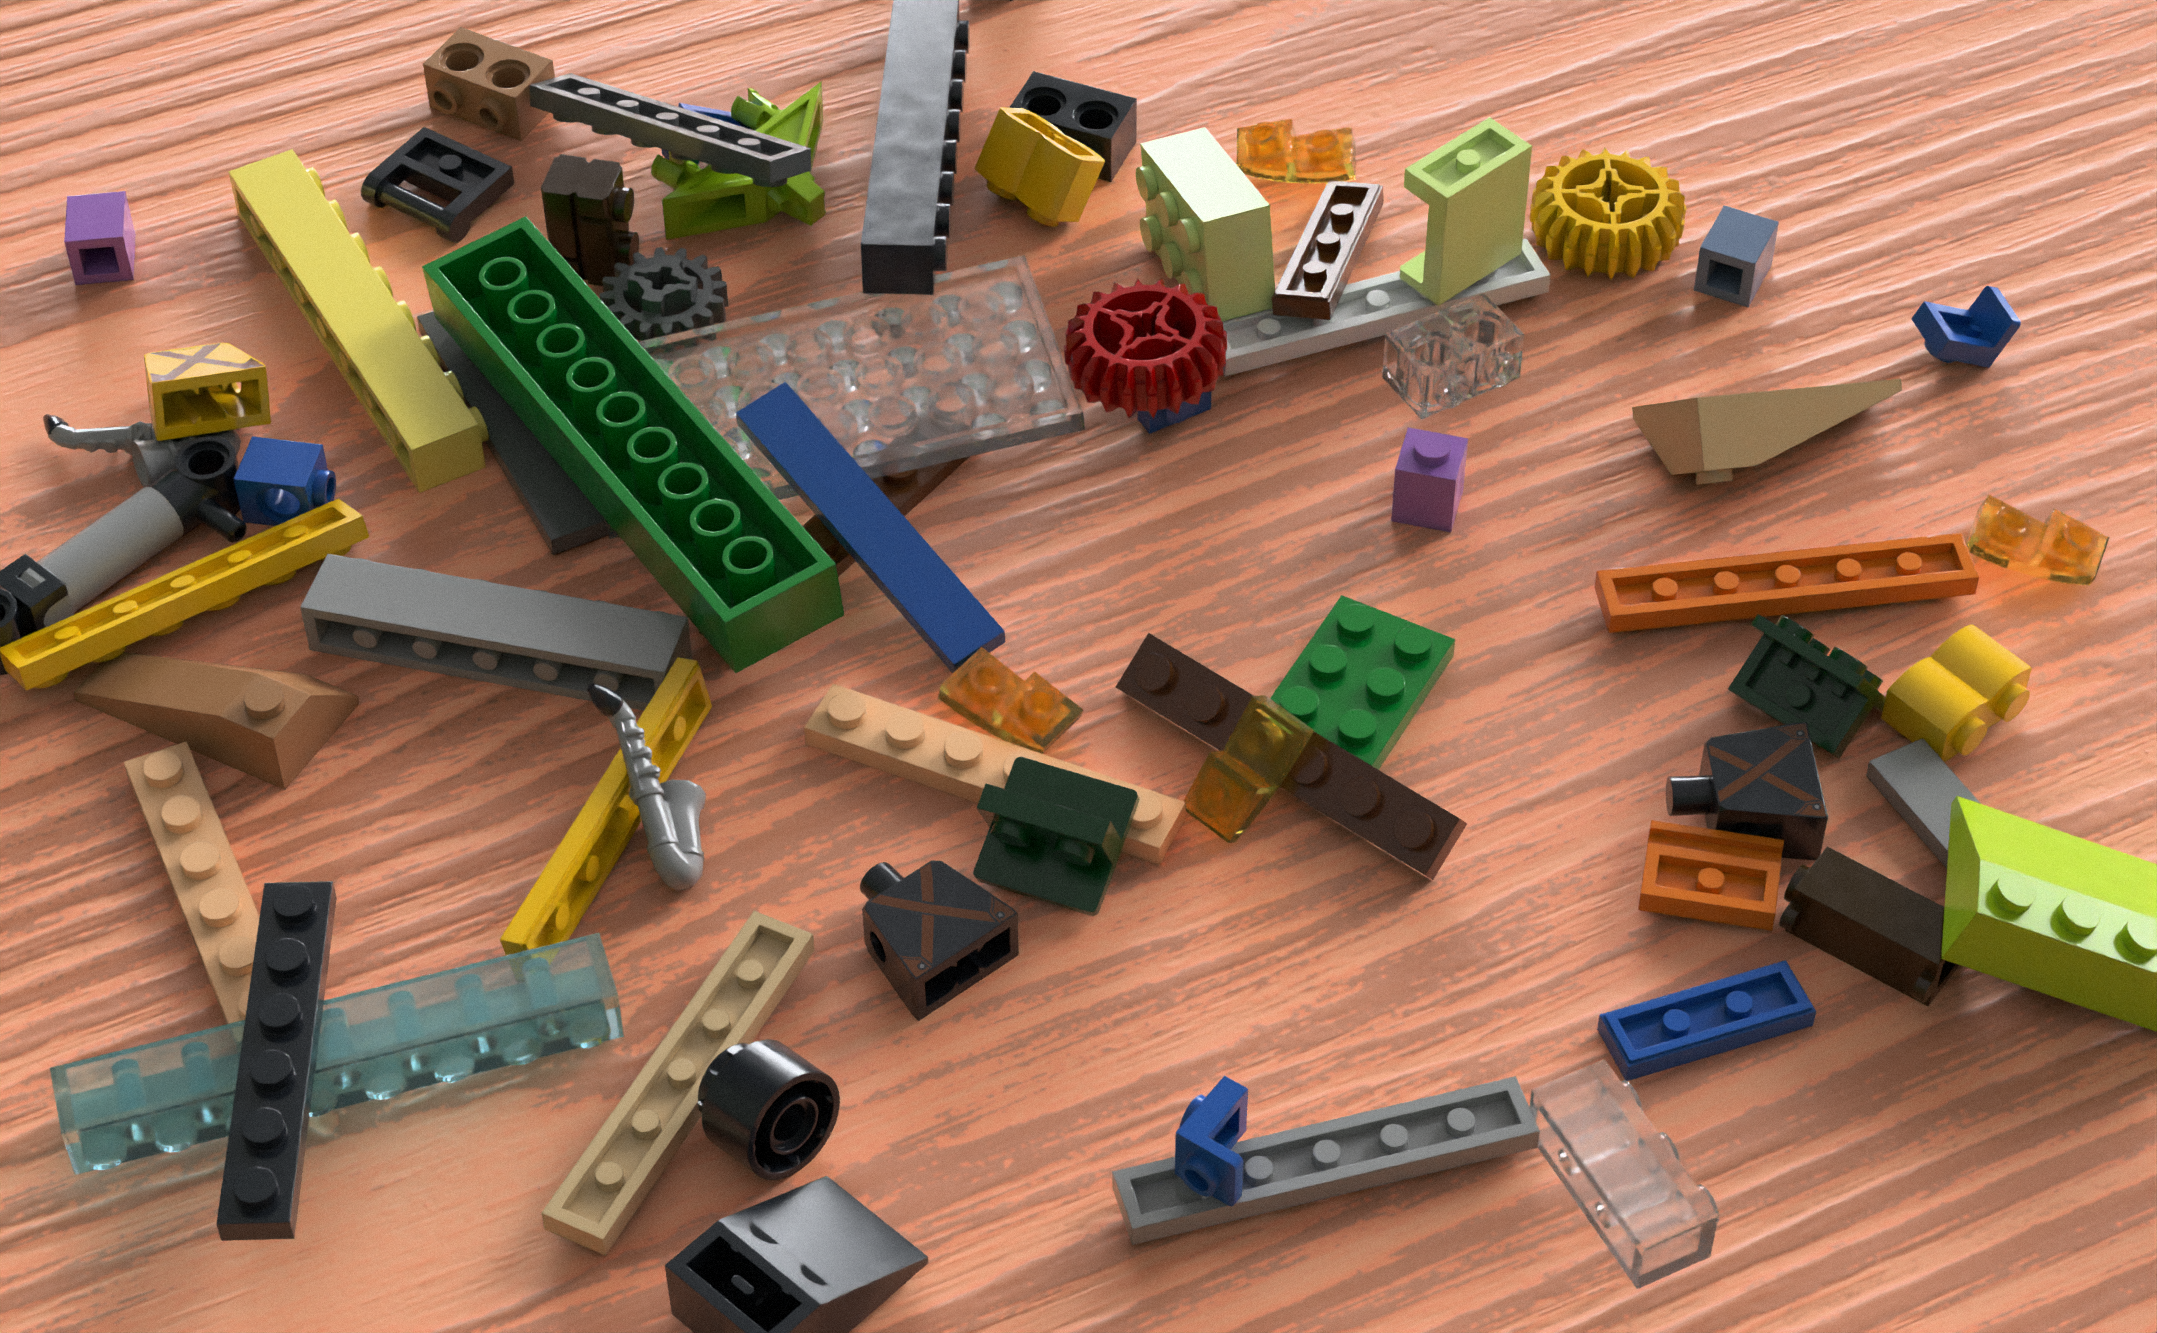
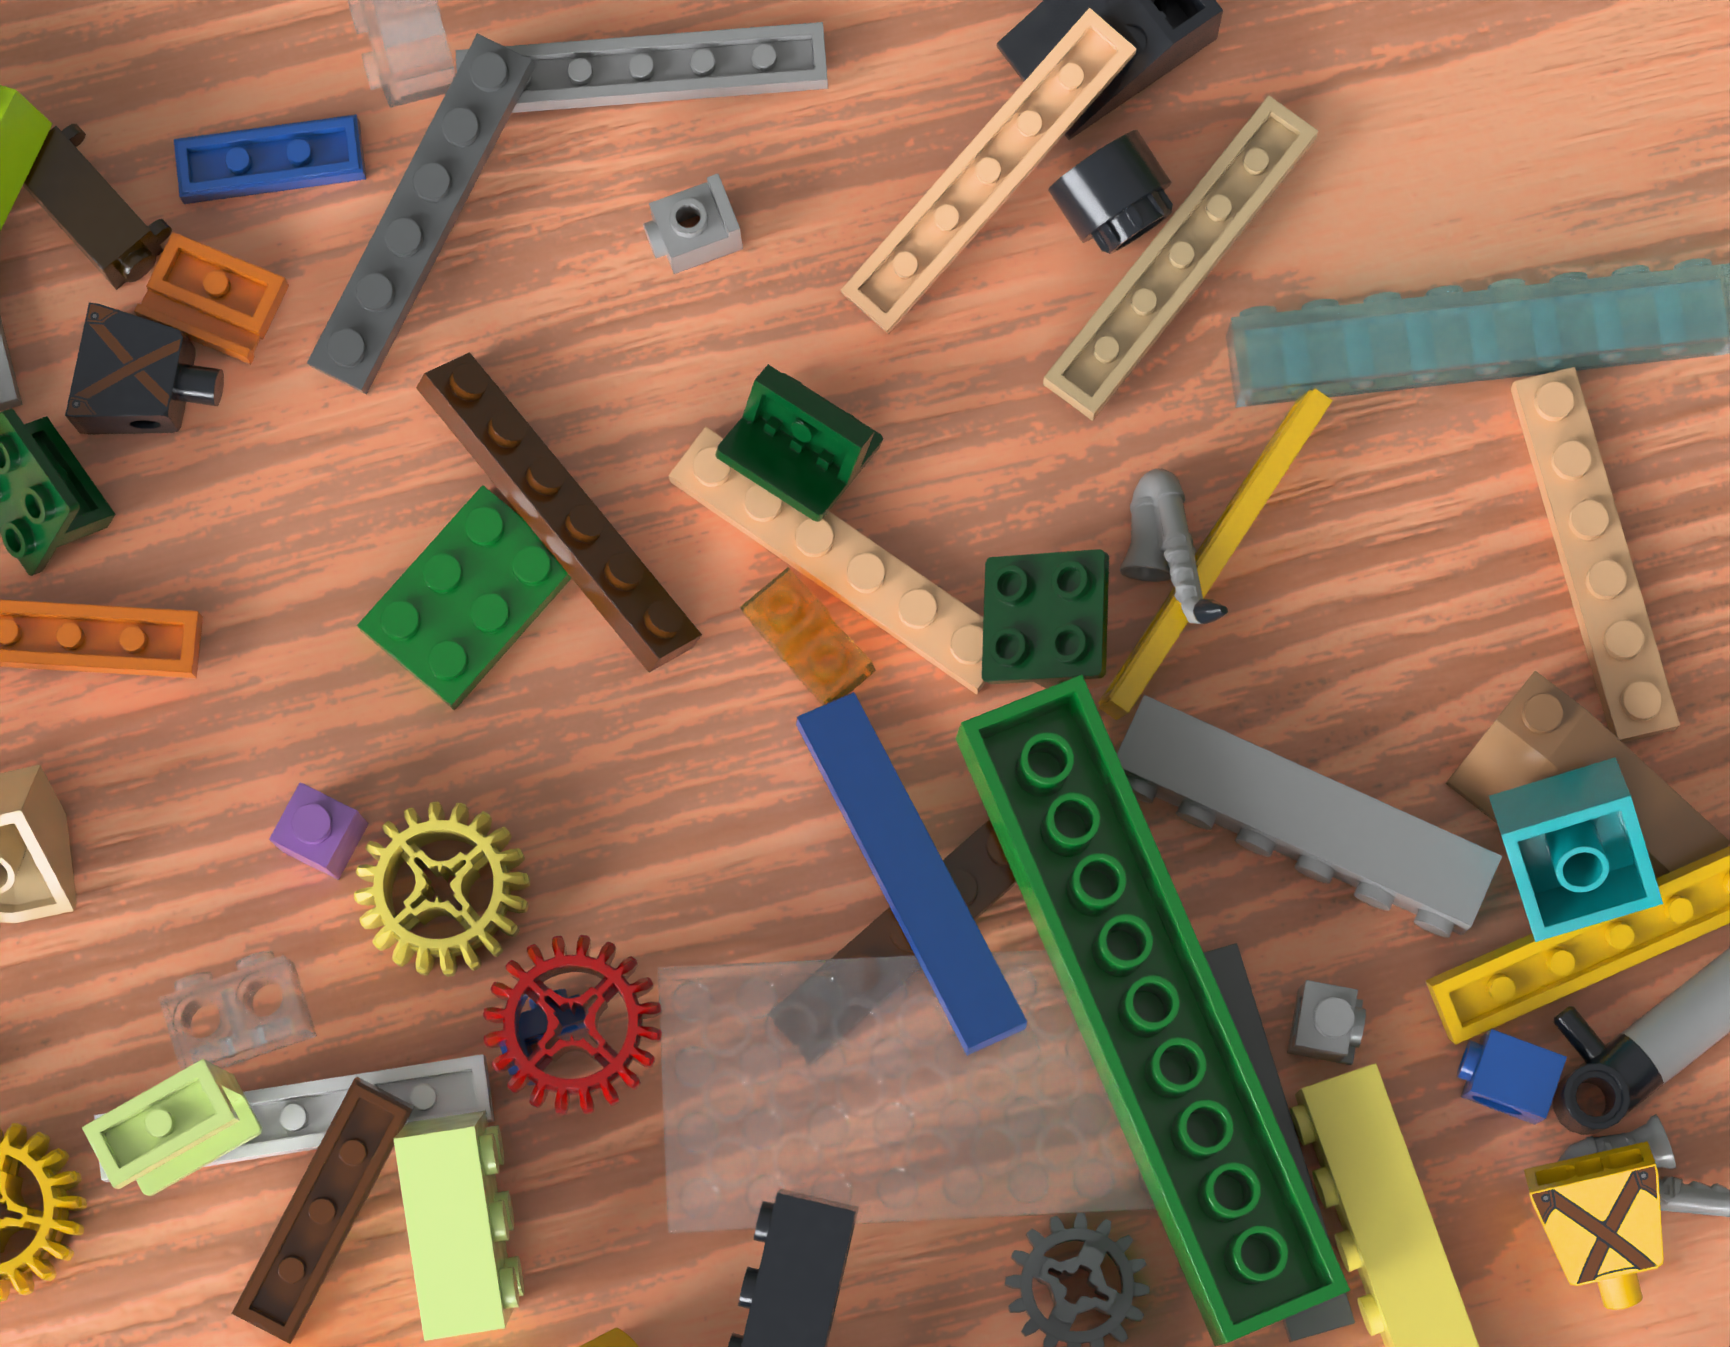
camera: 165 degrees left, 30 degrees up
(230, 610) = (1576, 849): none -> teal brick
(277, 1063) = (1539, 298): black plate -> none
(460, 490) = (1327, 1022): none -> light grey brick
(771, 720) = (1045, 617): none -> dark green bracket
(903, 1099) = (989, 170): none -> light nougat plate
(934, 932) = (934, 365): black torso -> none
(1205, 1142) = (741, 69): blue bracket -> none
(1222, 1018) = (710, 239): none -> light grey brick
(1249, 770) = (604, 486): clear yellow slope -> none
(1301, 464) = (406, 847): none -> light yellow gear
(1516, 980) = (421, 213): none -> dark grey plate

